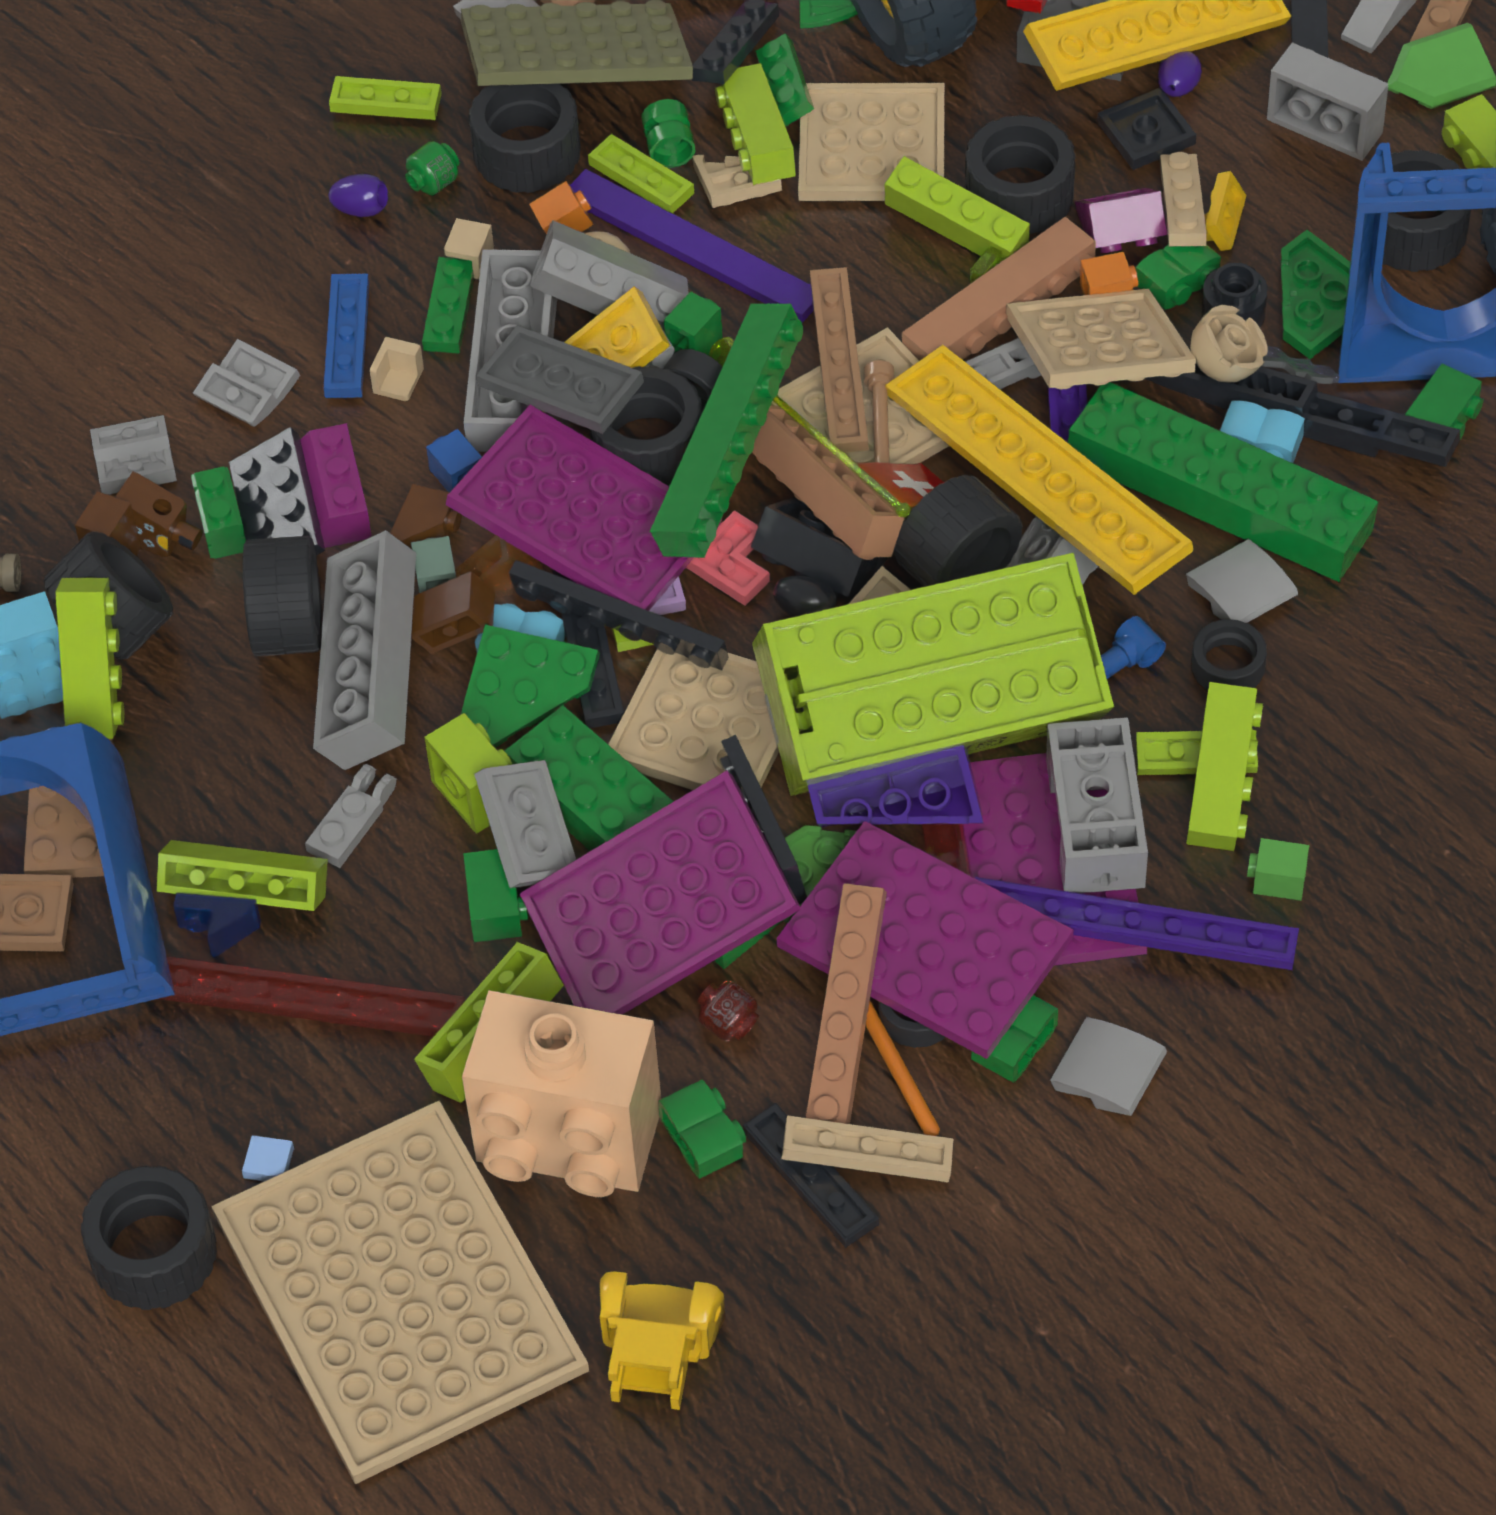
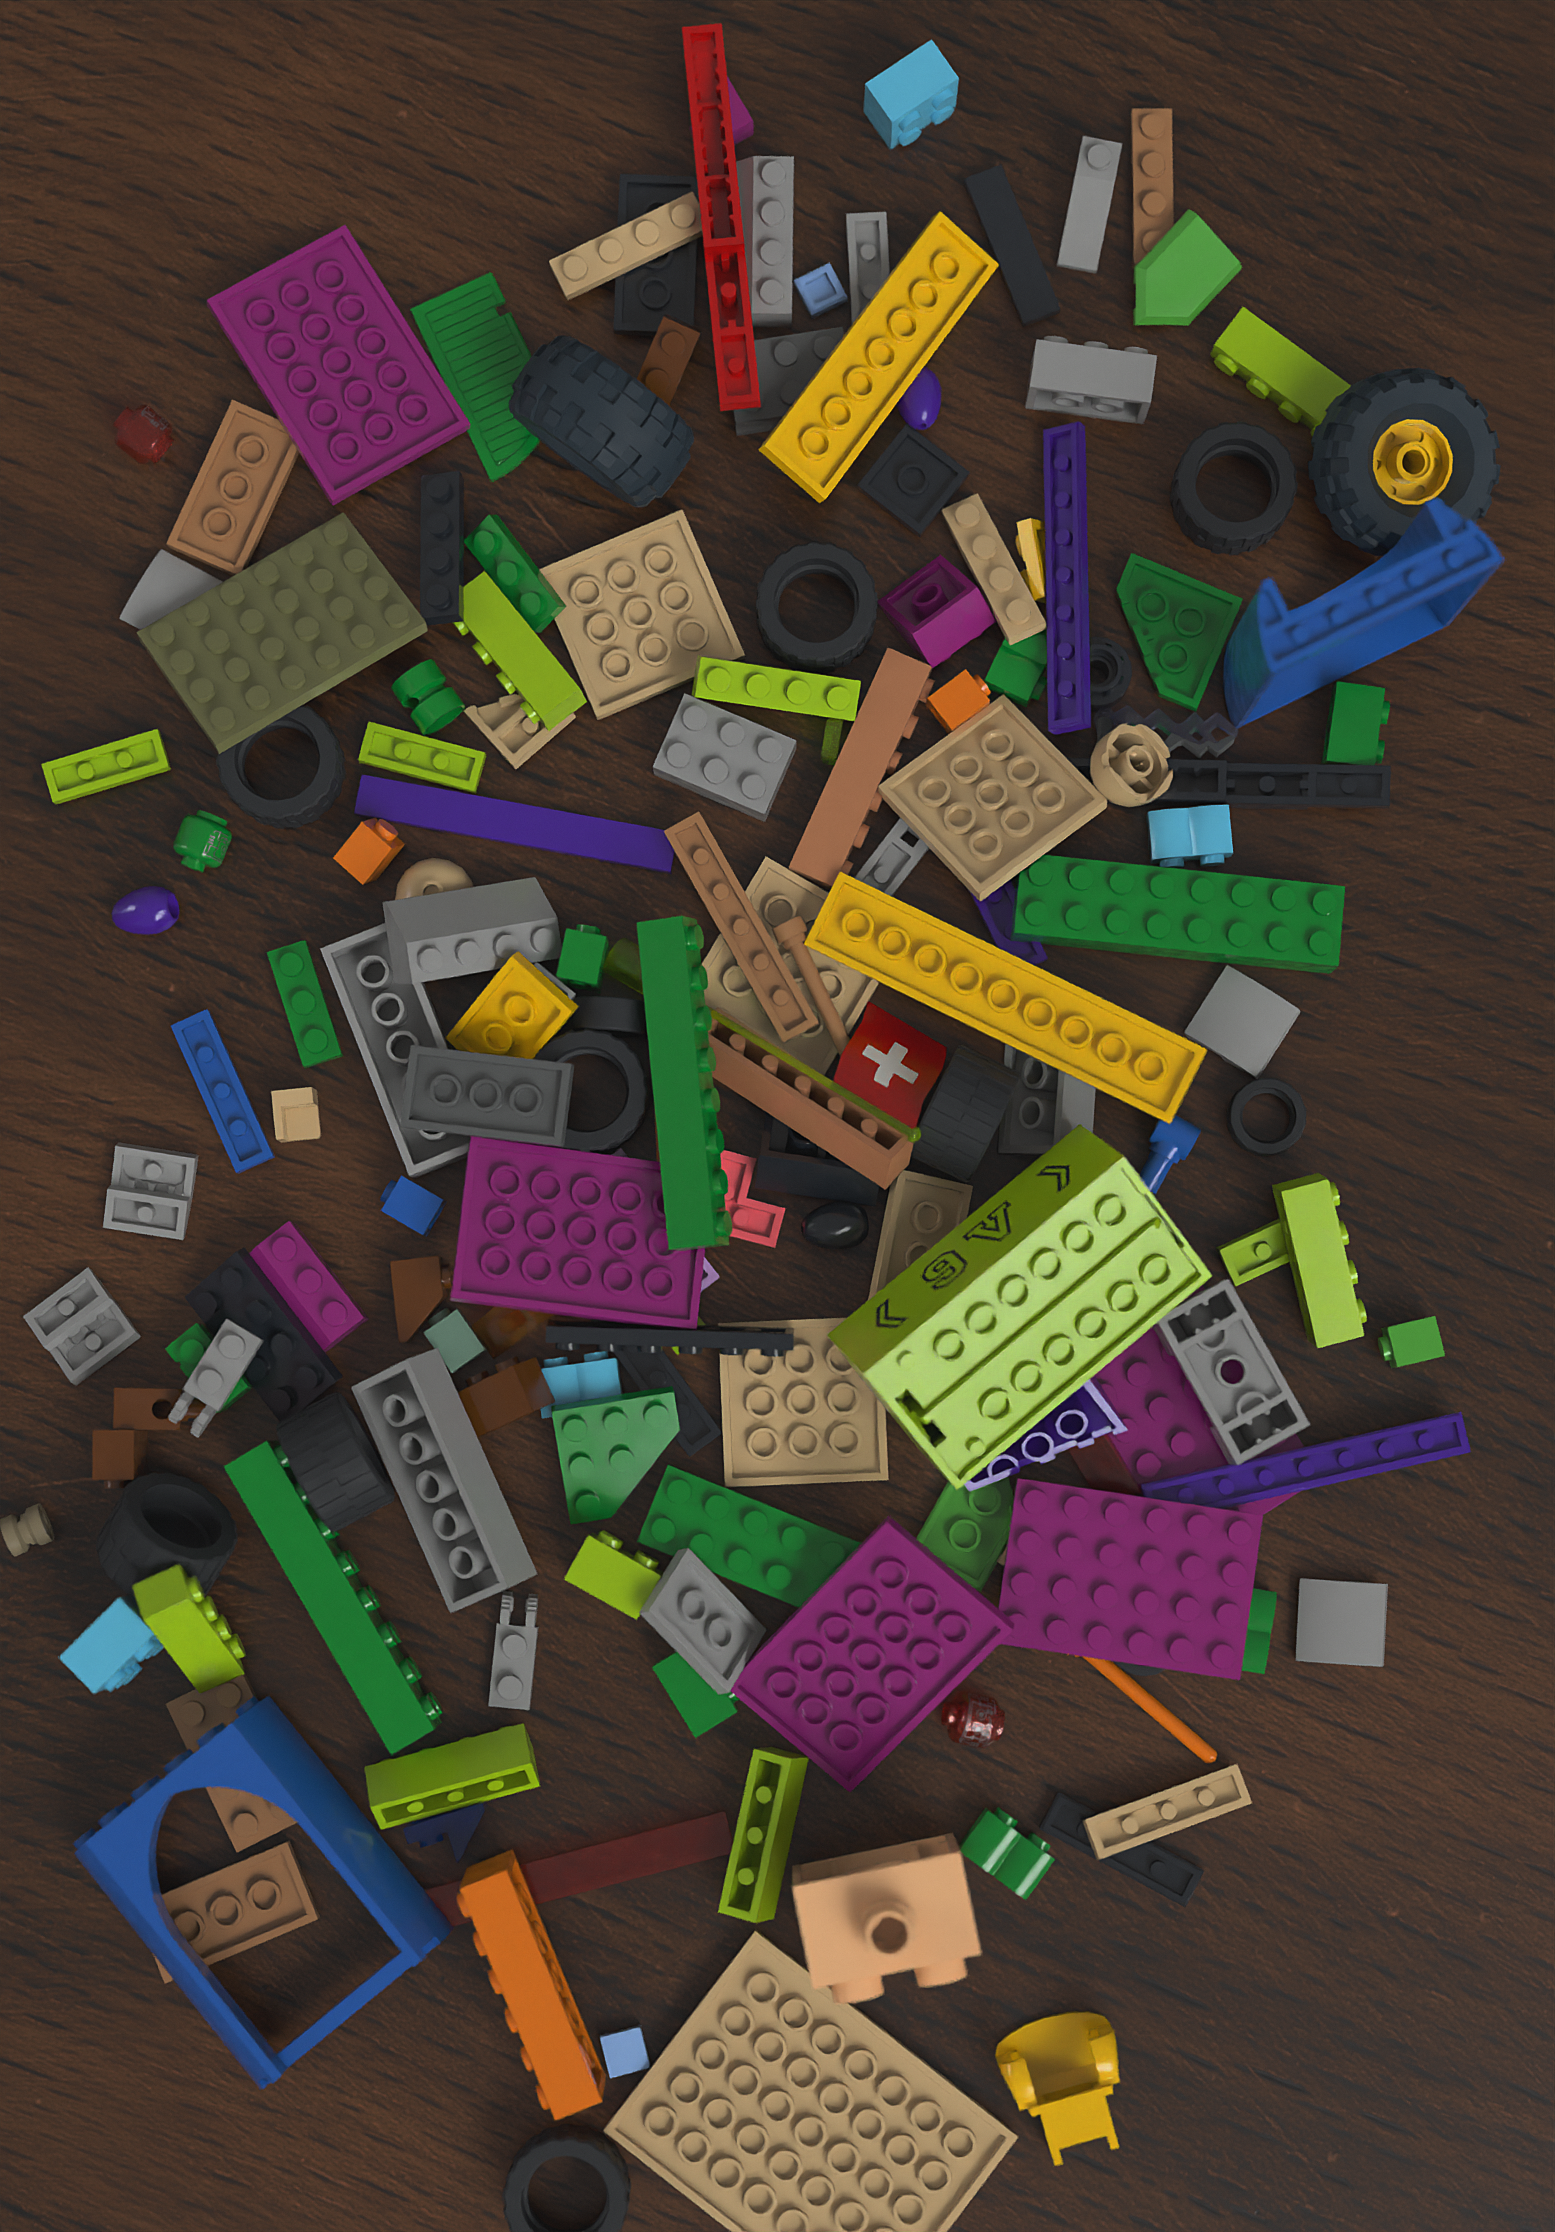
camera: 25 degrees left, 30 degrees up
(216, 1045) = (532, 1985): none -> orange brick
(220, 498) = (217, 1373): none -> light grey hinge
(224, 702) = (336, 1598): none -> green brick
(467, 242) = (293, 930): tan panel -> none
(740, 768) = (912, 1512): black plate -> none
(846, 1003) = (1091, 1690): nougat plate -> none
(889, 251) = (724, 757): none -> light grey brick
(1239, 219) = (1066, 578): none -> dark purple tile

